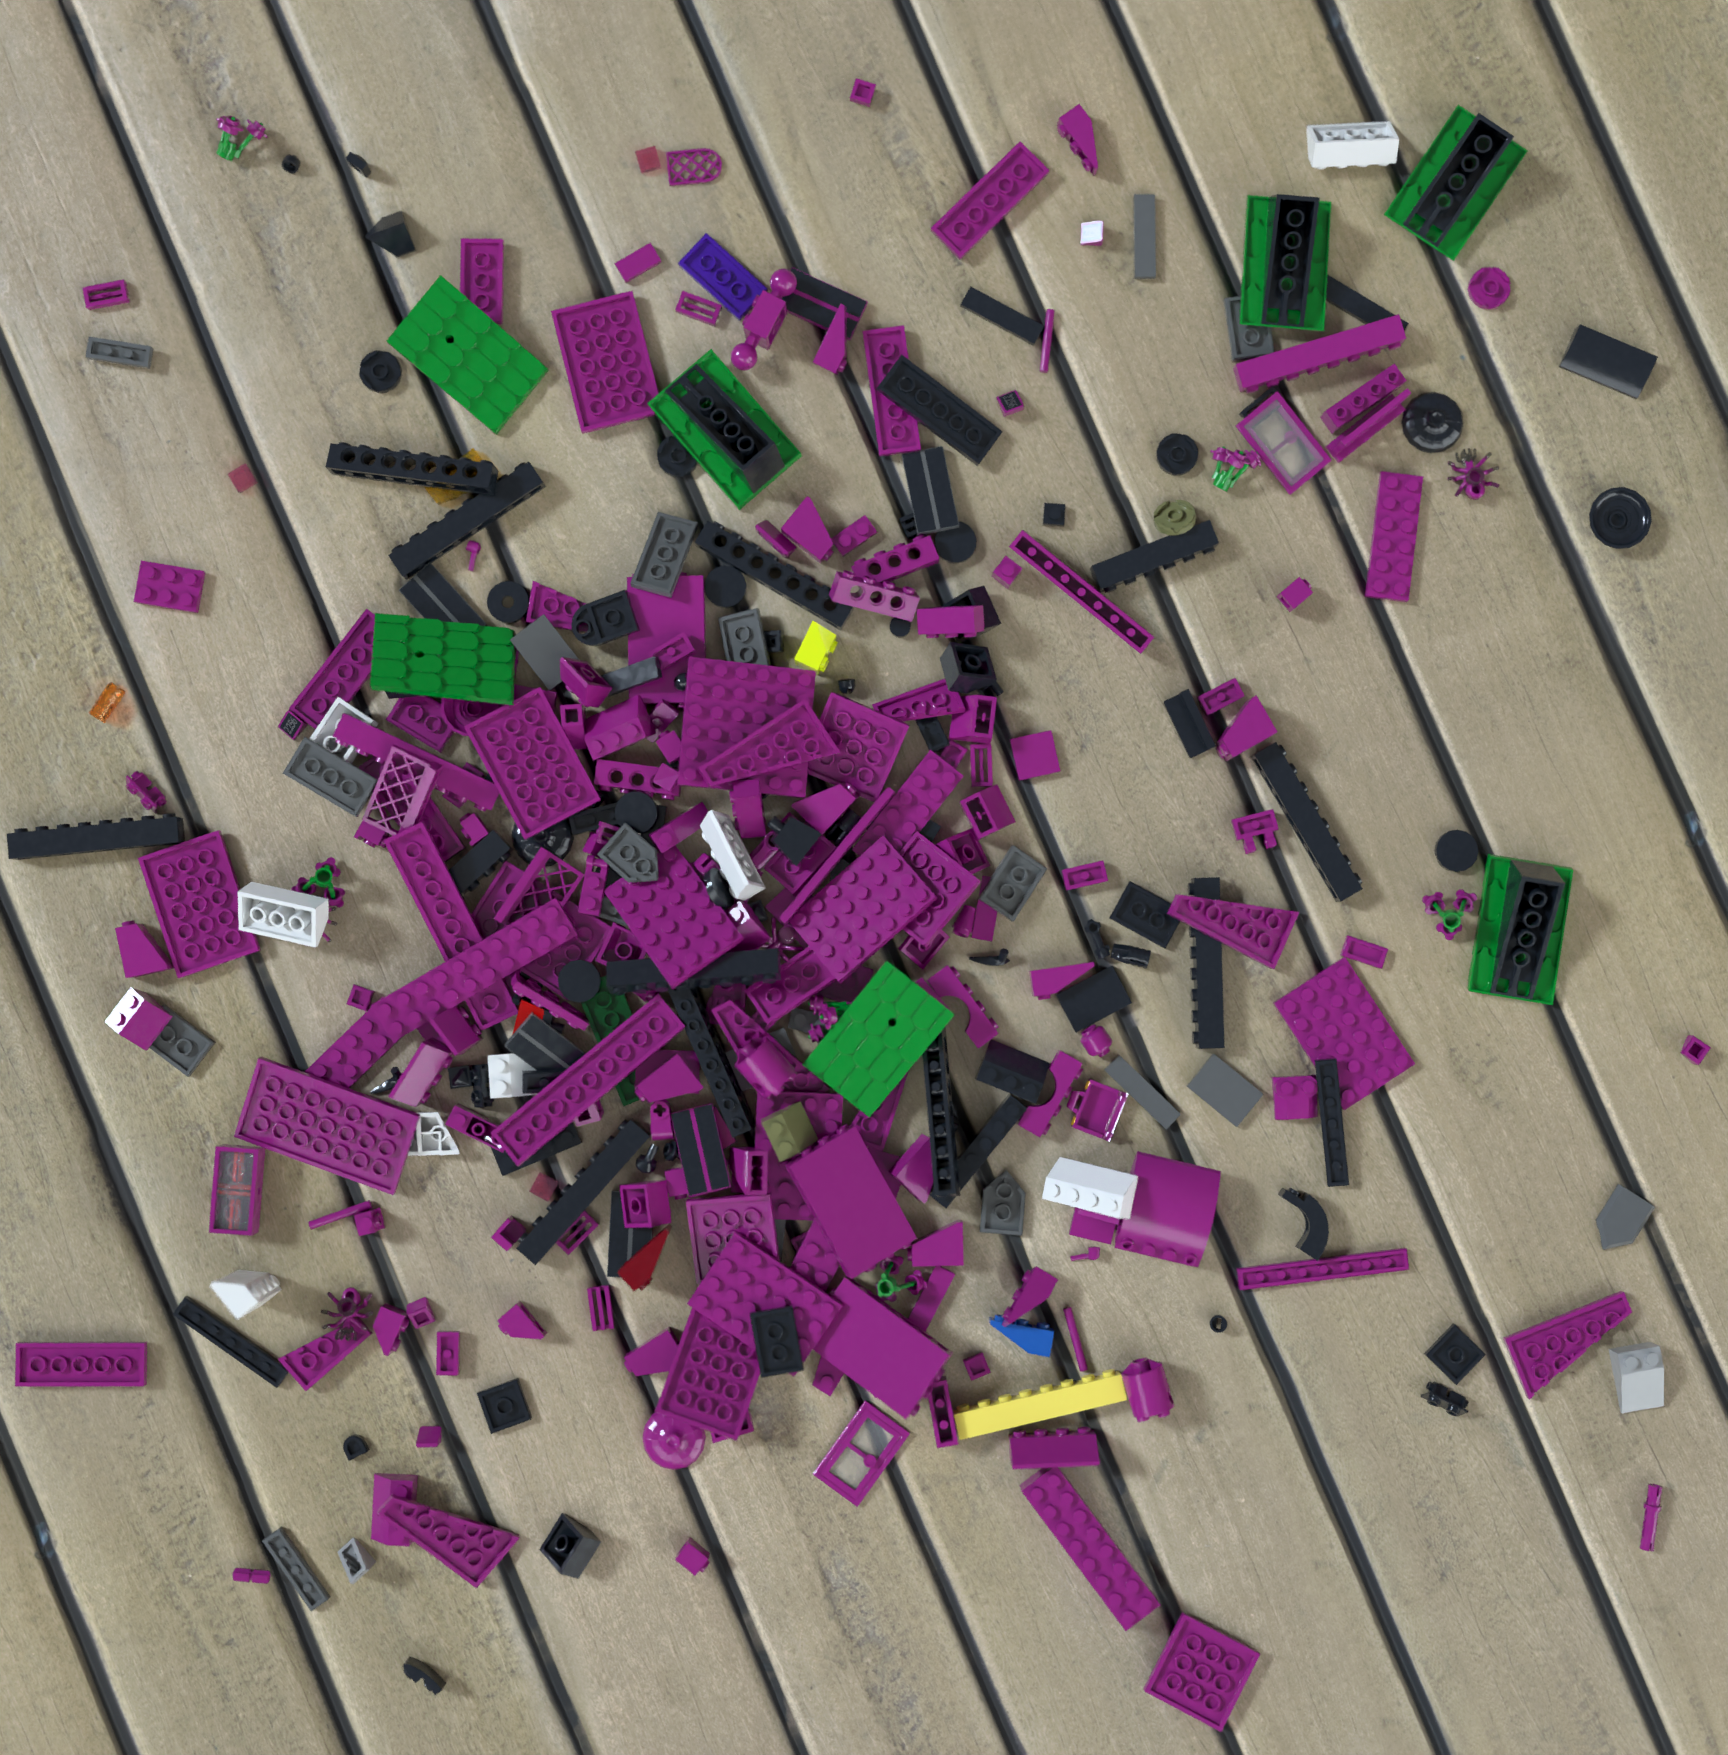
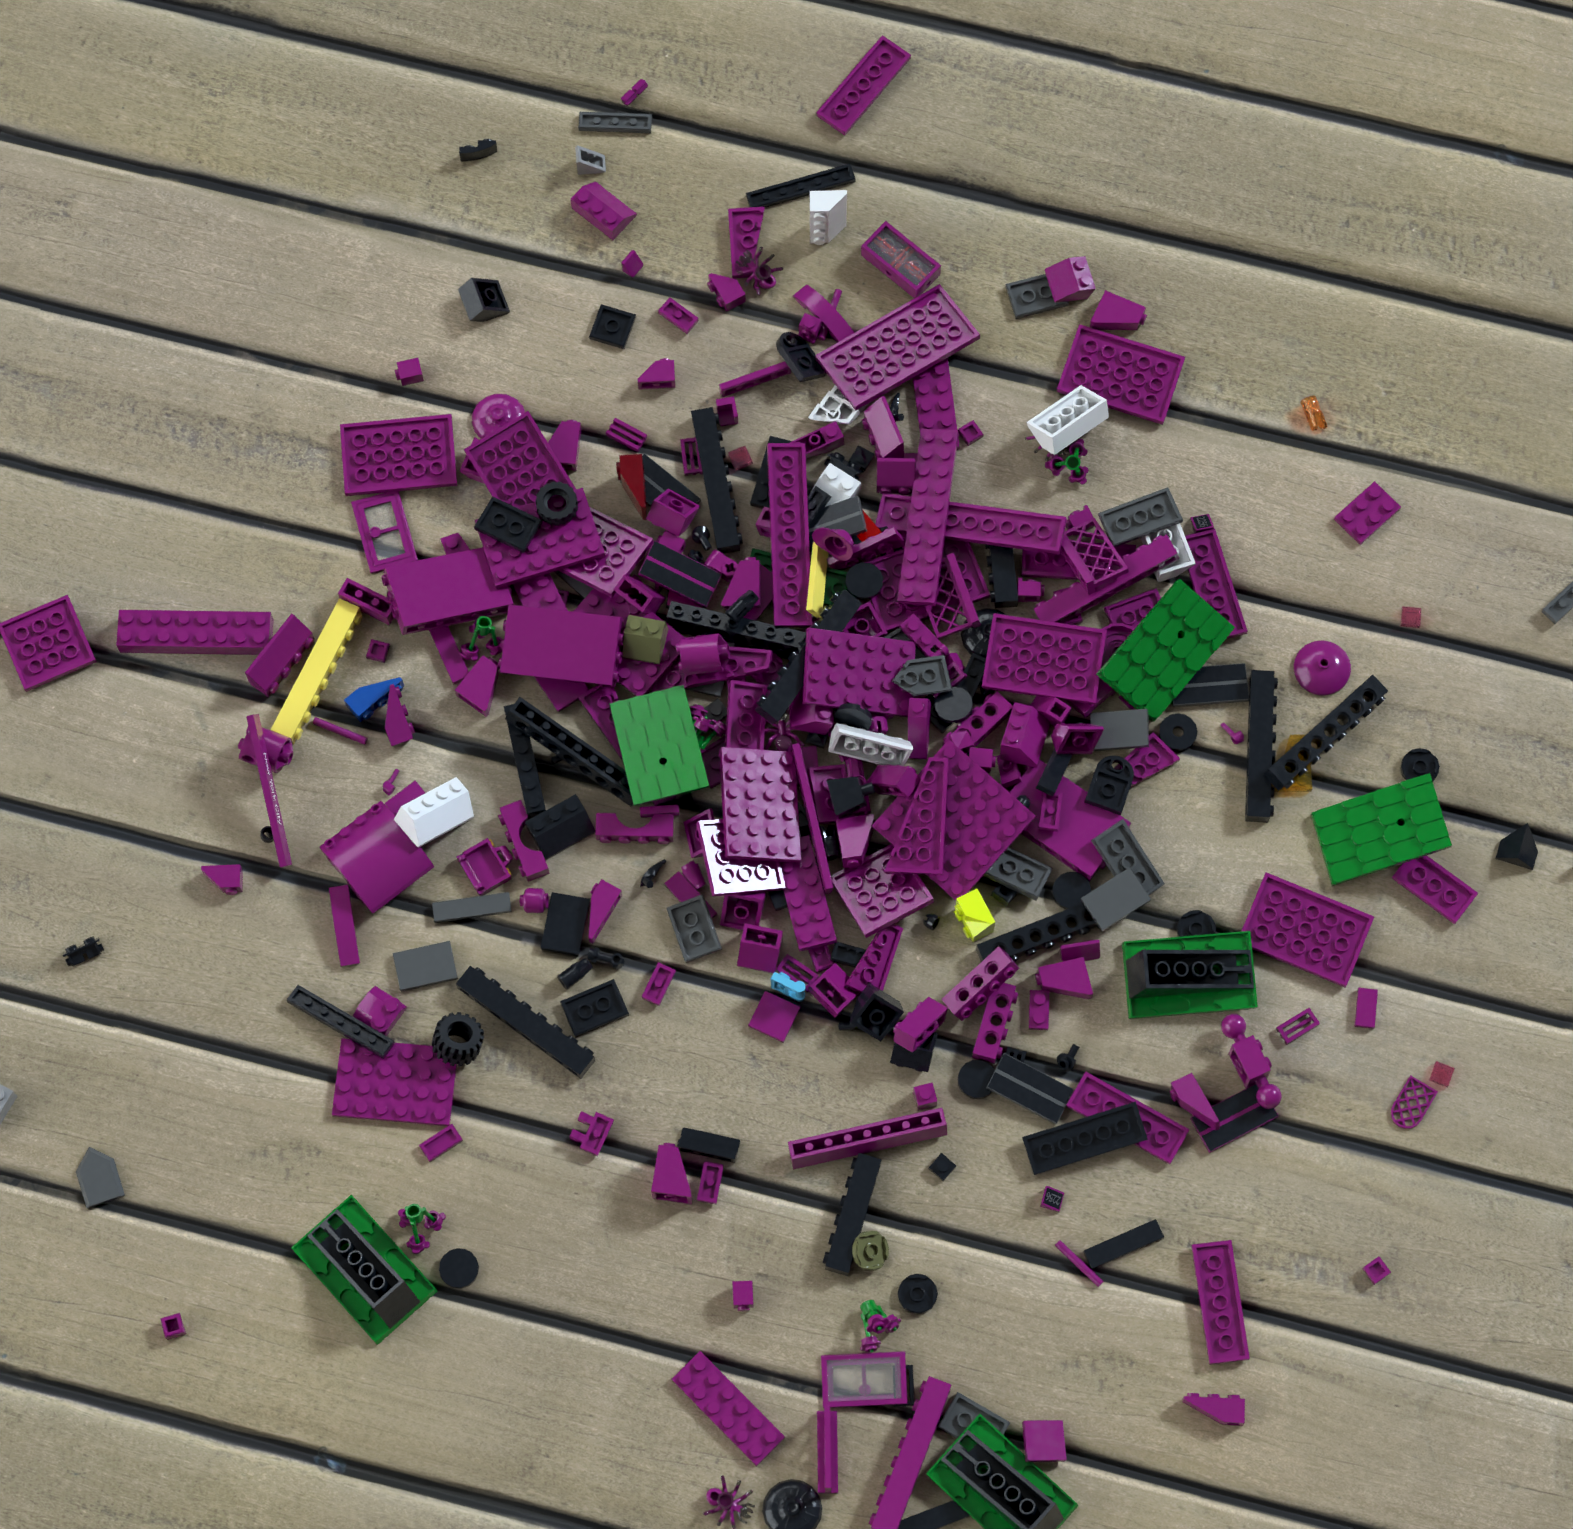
camera: 130 degrees right, 15 degrees down
(95, 838) = (1220, 341): black brick -> none
(149, 798) = (1237, 393): magenta hinge -> none
(343, 1220) = (822, 309): none -> magenta slope
(355, 1446) = (665, 214): black tile -> none
(359, 531) = (1319, 678): none -> magenta dish
(405, 1208) = (799, 357): none -> black tile
(420, 1313) = (720, 318): magenta slope -> none
(456, 1541) = (546, 231): magenta wing -> none
(457, 1232) = (754, 379): none -> magenta tile
(564, 1030) = (834, 541): none -> magenta piece
(611, 1022) = (817, 580): none -> light yellow tile
(691, 1066) = (742, 606): none -> black hinge
(706, 1313) = (562, 516): none -> black tyre
(708, 537) = (1115, 899): none -> dark grey tile
(722, 276) = (1309, 1061): dark purple tile -> none
(780, 1500) = (398, 455): none -> magenta plate
(881, 479) = (1067, 1061): none -> black plate
(899, 627) = (942, 989): black tile -> none
(915, 1169) = (550, 703): magenta slope -> none
(1003, 1206) = (472, 750): dark grey tile -> none
(1004, 766) = (782, 983): none -> medium azure plate
(1092, 233) = (1136, 1360): slope -> none
(1144, 236) = (1104, 1399): dark grey tile -> none
(1186, 1353) = (269, 790): none -> magenta tile
(1219, 257) = (1044, 1441): none -> magenta tile
(1243, 927) = (527, 1065): magenta wing -> none
(1246, 1188) = (344, 925): none -> magenta slope
(1253, 1006) = (460, 1026): none -> black tyre
(1286, 1328) = (226, 877): none -> magenta slope
(1306, 822) = (568, 1172): black brick -> none
(1316, 1223) = (285, 957): black arch -> none
(1323, 1269) = (243, 937): magenta tile -> none
(1363, 398) = (851, 1464): magenta brick -> none
(1454, 1354) = (107, 983): black tile -> none
(1557, 1342) = (54, 1058): magenta wing -> none

